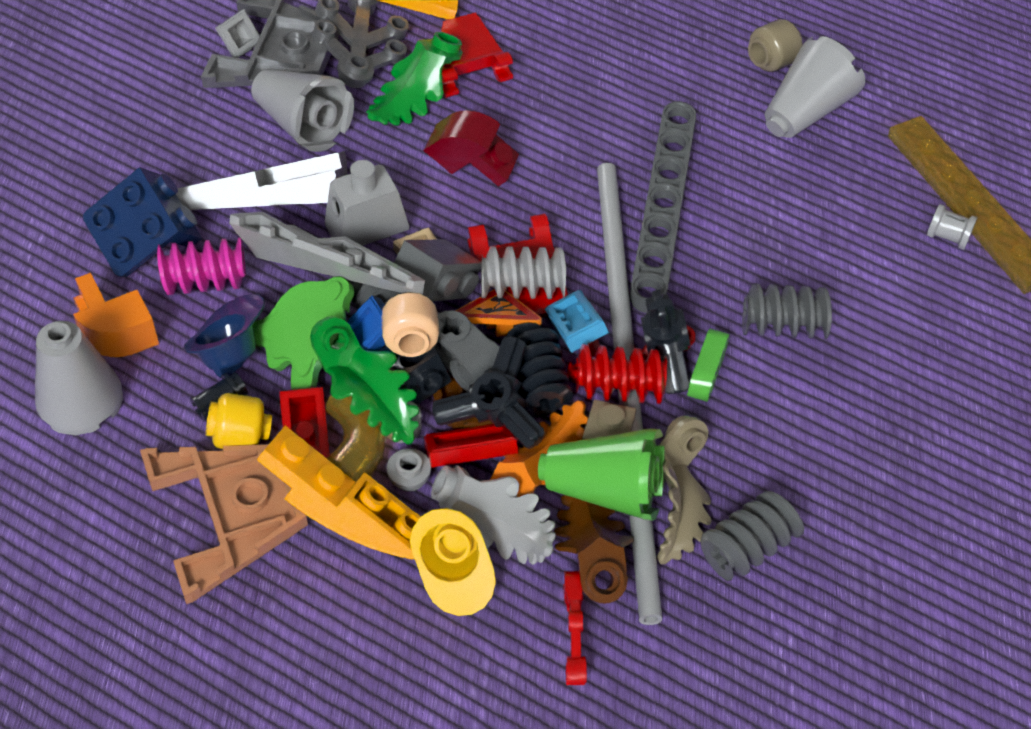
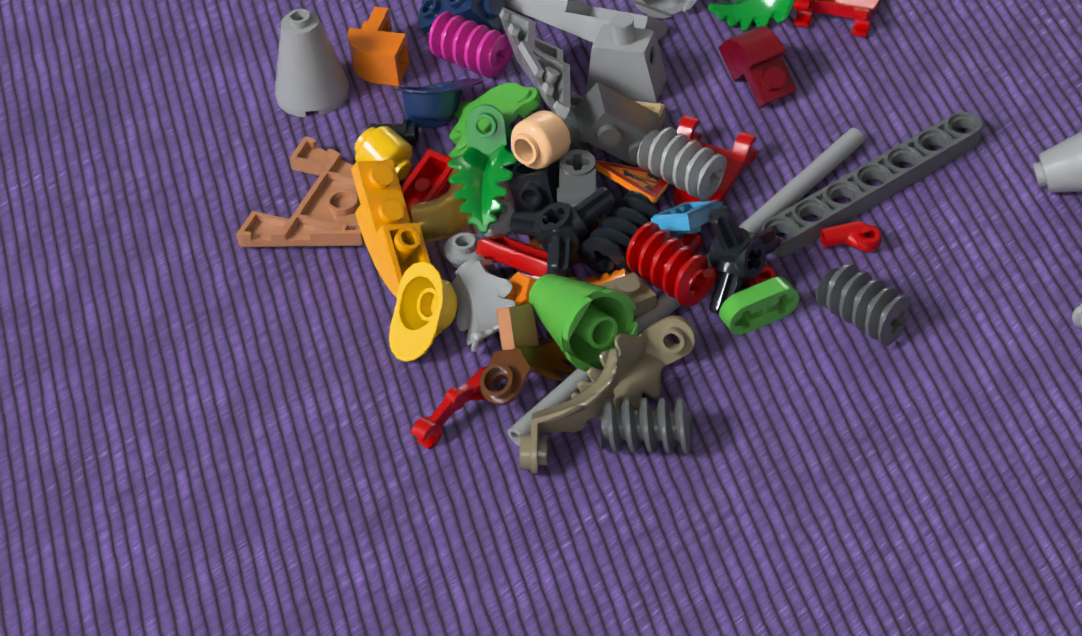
camera: 50 degrees right, 10 degrees down
(563, 517) = (517, 327): none -> tile
(686, 620) = (568, 416): none -> dark tan plant
(702, 256) = (853, 234): none -> red arm

